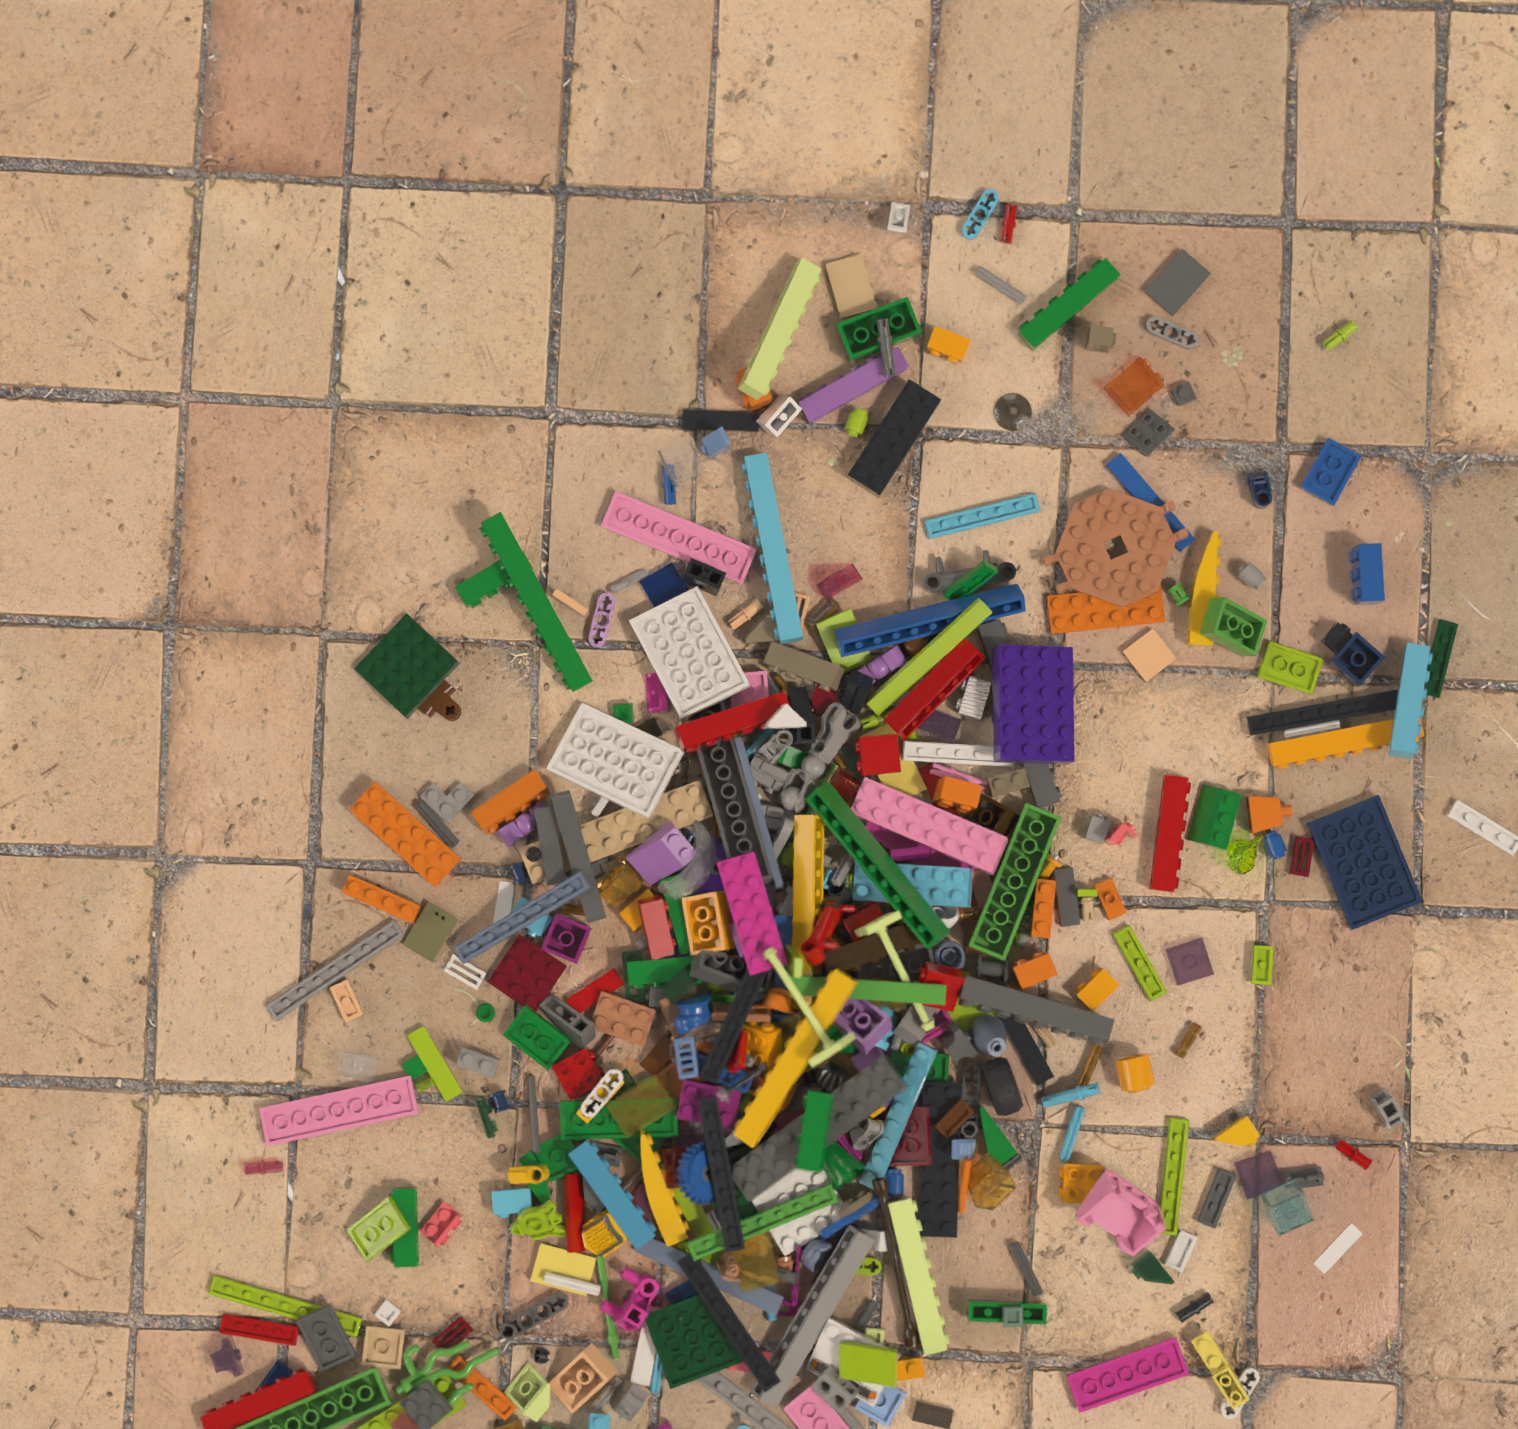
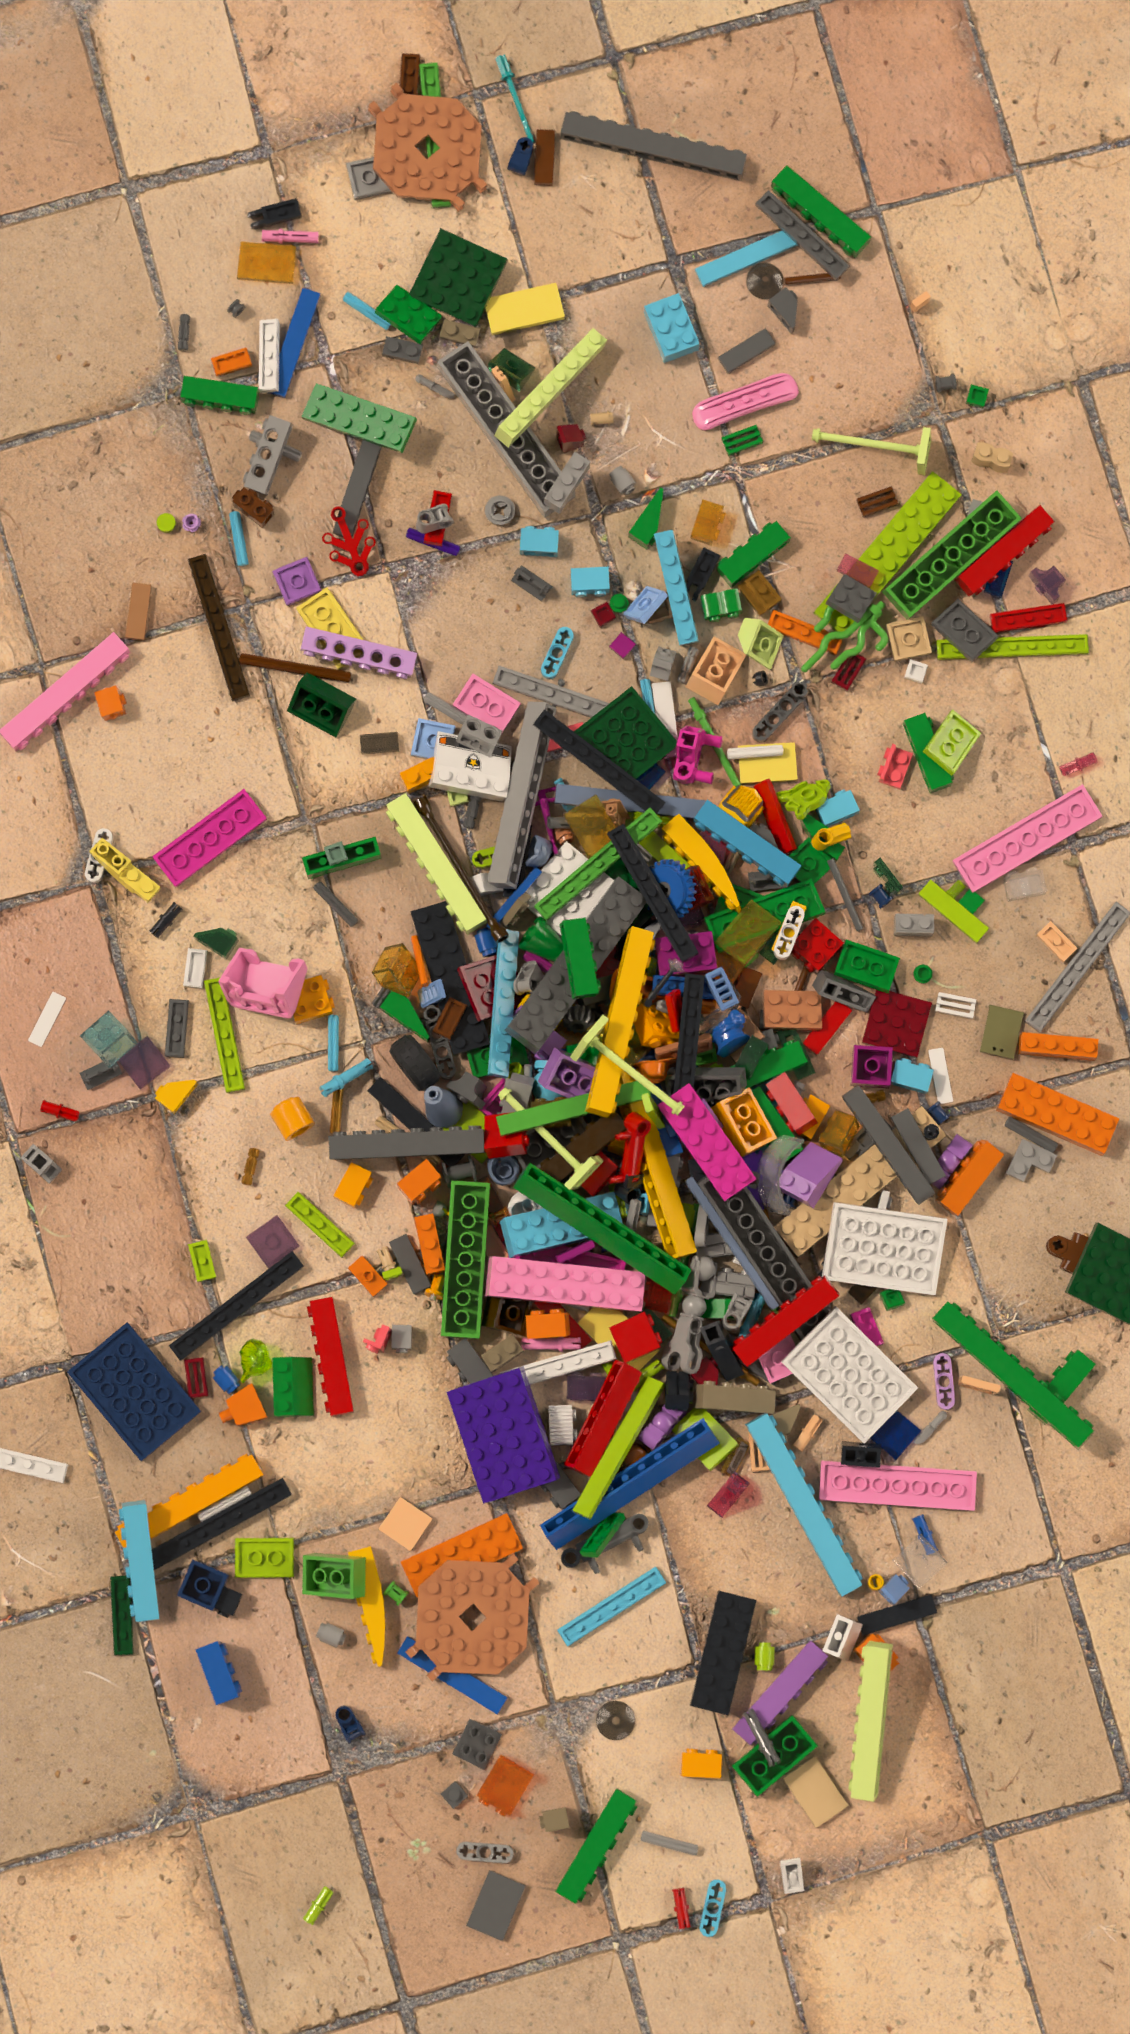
camera: 160 degrees right, 5 degrees down
(522, 917) = (920, 1071): sand blue tile -> none
(726, 456) = (878, 1580): none -> yellow hinge
(785, 718) = (738, 1338): white slope -> none
(868, 1363) = (457, 766): lime tile -> none
(1243, 911) = (236, 1306): none -> black plate
(1330, 471) = (285, 1764): blue plate -> none

